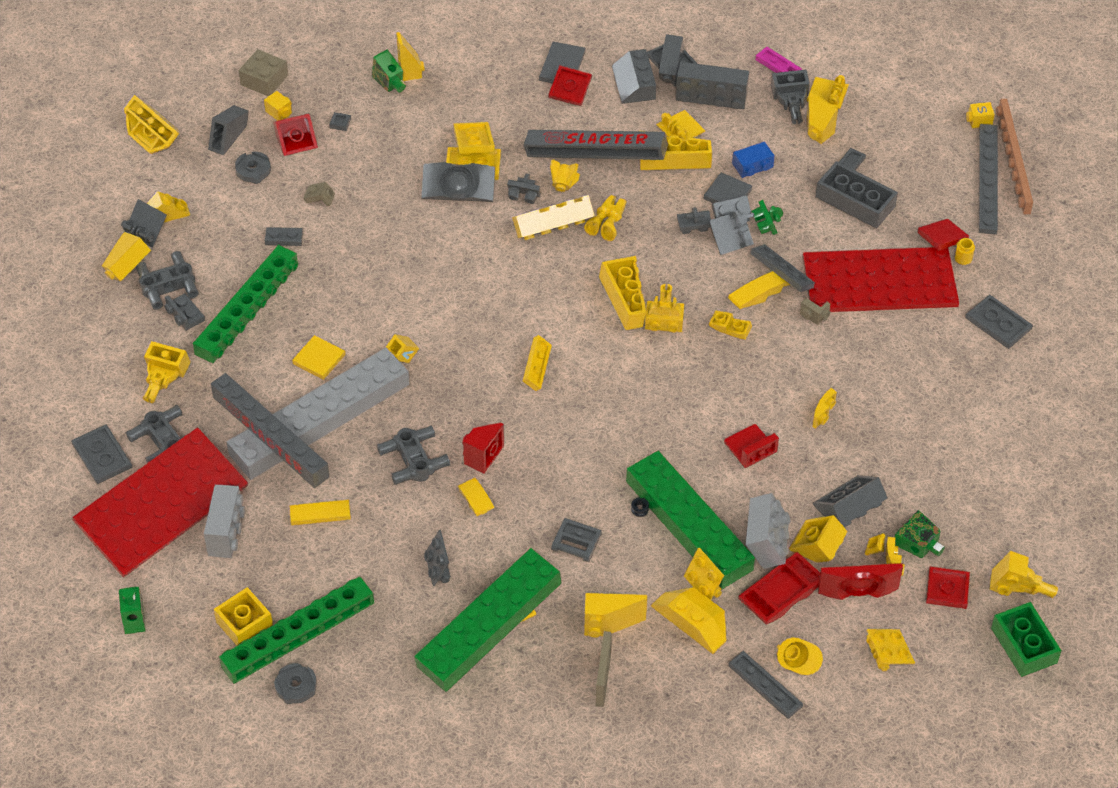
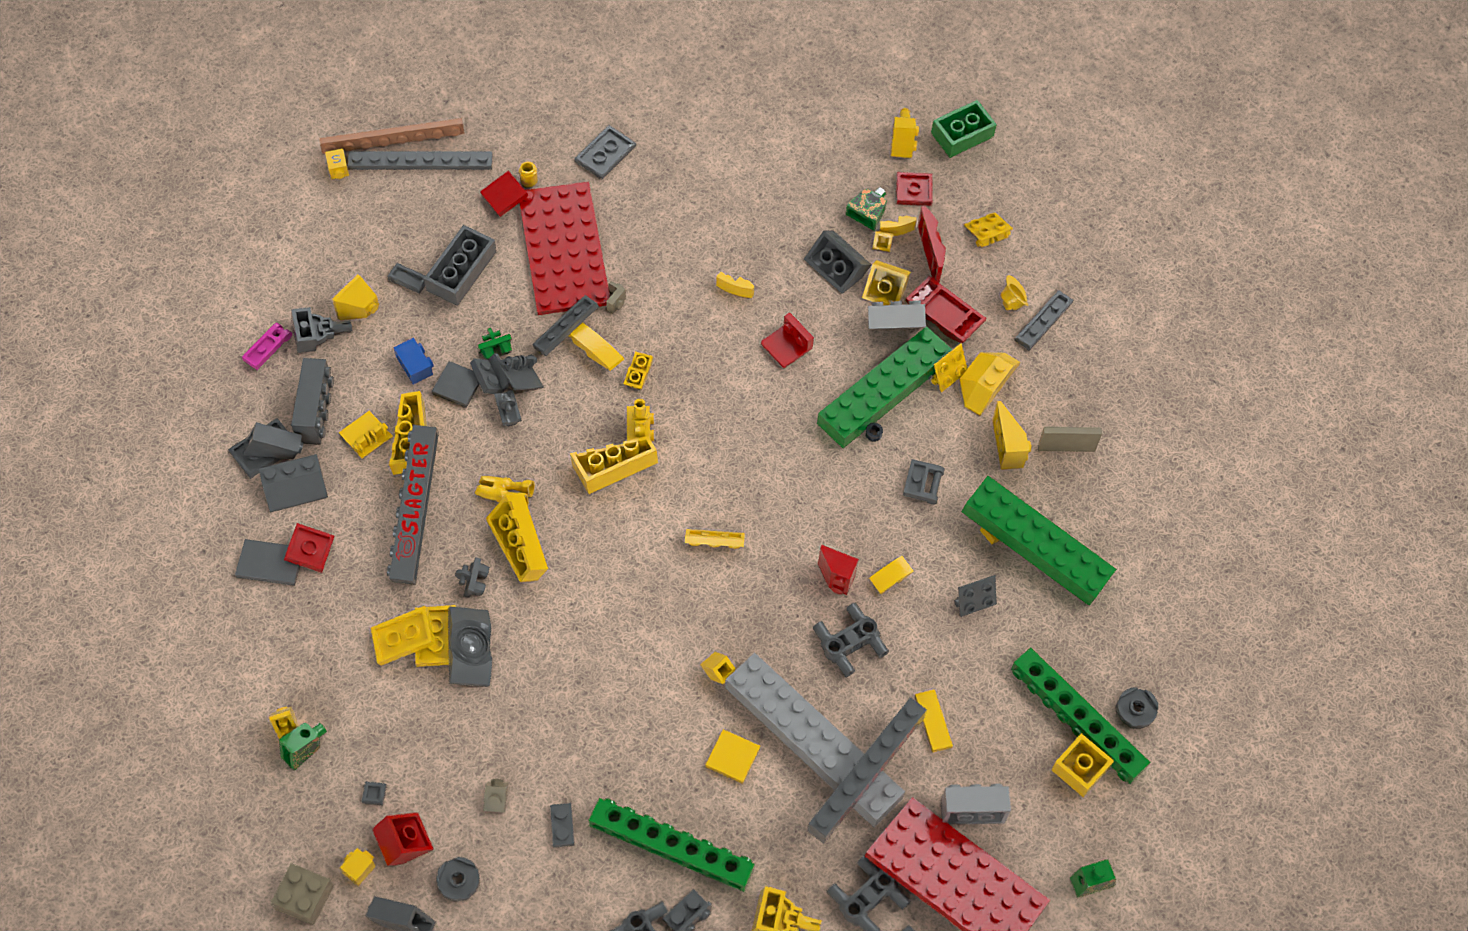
camera: 100 degrees left, 10 degrees up
(563, 175) = (453, 538): yellow brick -> none
(830, 91) = (304, 296): yellow hinge -> none

